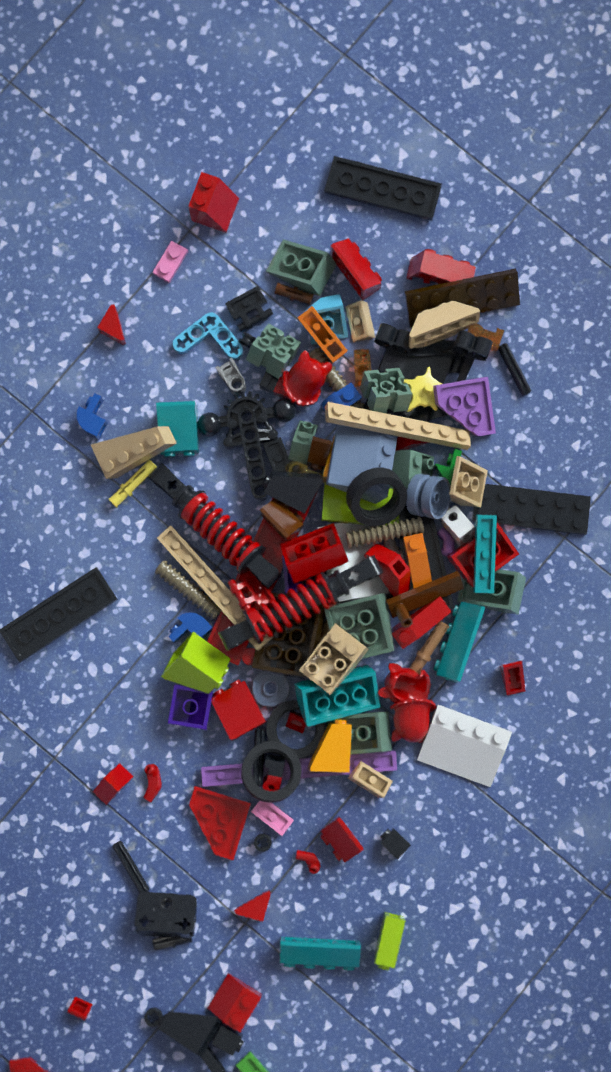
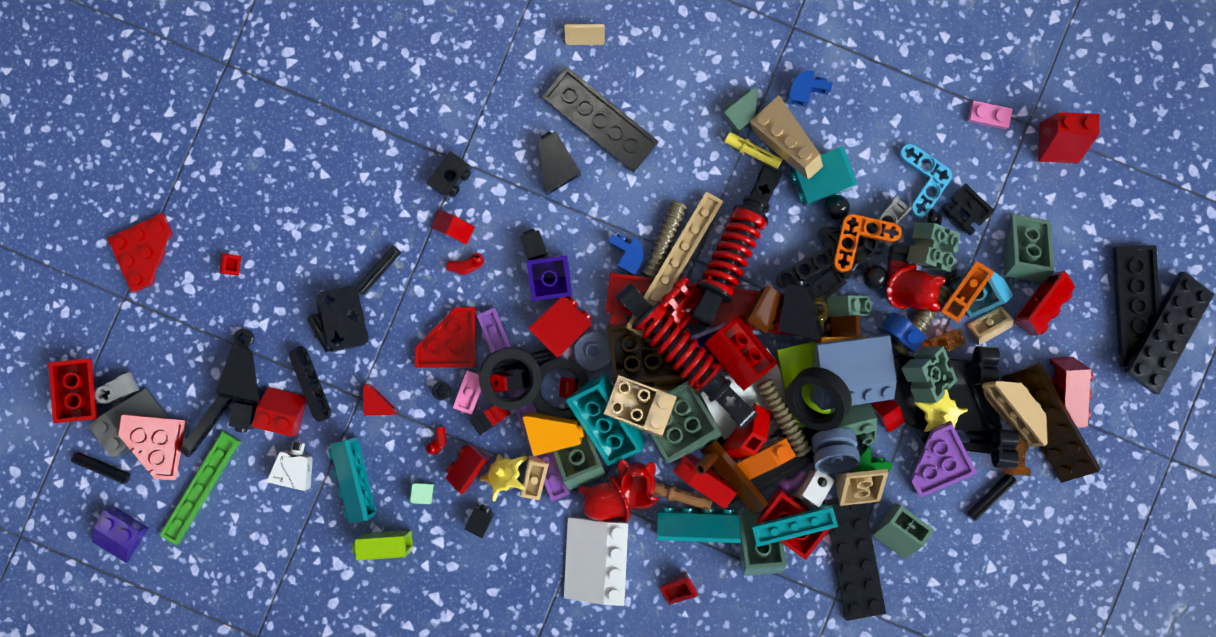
camera: 70 degrees right, 5 degrees up
(56, 762) = (454, 164): none -> black brick
(85, 667) = (556, 163): none -> black slope
(94, 482) = (742, 112): none -> sand green slope
(111, 326) = (905, 76): red slope -> none
(154, 712) = (533, 244): none -> black brick
(197, 665) = (592, 271): lime slope -> none
(217, 965) = (302, 363): none -> black beam
(238, 409) = (860, 230): none -> orange beam
(291, 1006) = (292, 468): none -> white torso
(294, 293) = (997, 249): reddish brown pin -> none
(302, 804) = (488, 419): none -> leg
(306, 343) = (951, 278): none -> black bush
(352, 890) = (421, 493): none -> slope
(358, 806) = (503, 474): none -> light yellow piece
(397, 426) = (897, 396): tan plate -> none
(415, 169) = (1169, 333): none -> black plate
(520, 458) = (902, 531): none -> sand green slope

